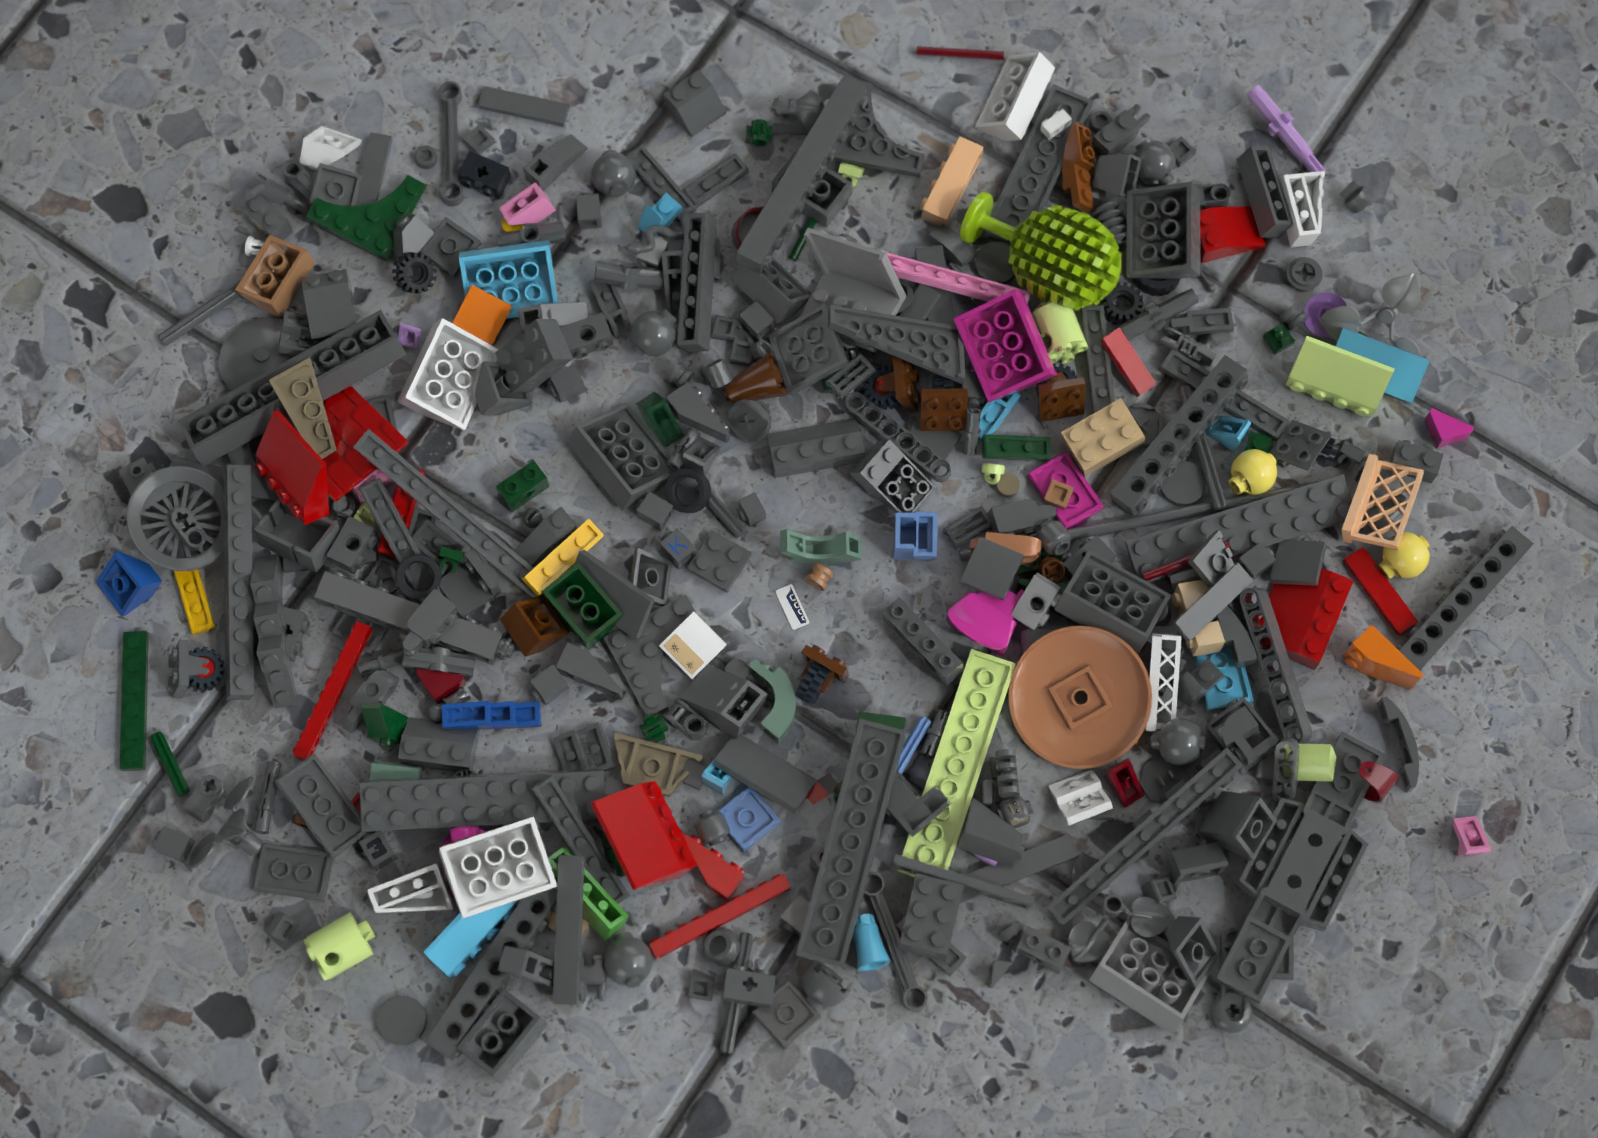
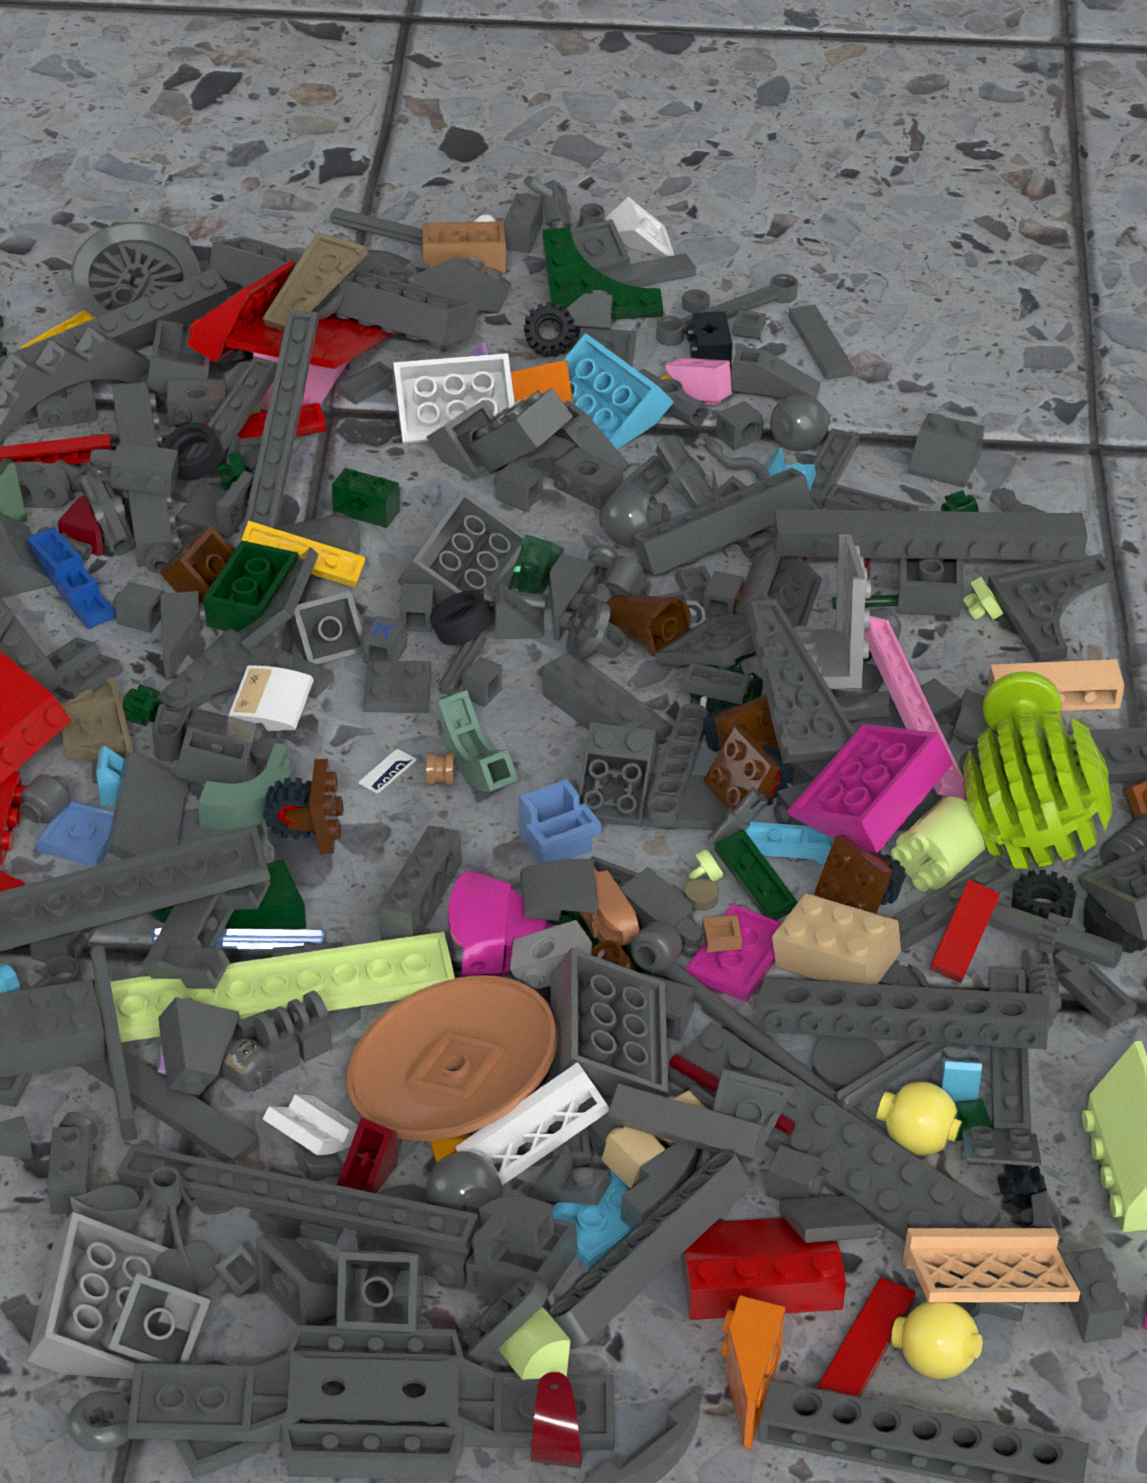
camera: 60 degrees right, 30 degrees down
(128, 582) = (47, 286): blue slope -> none

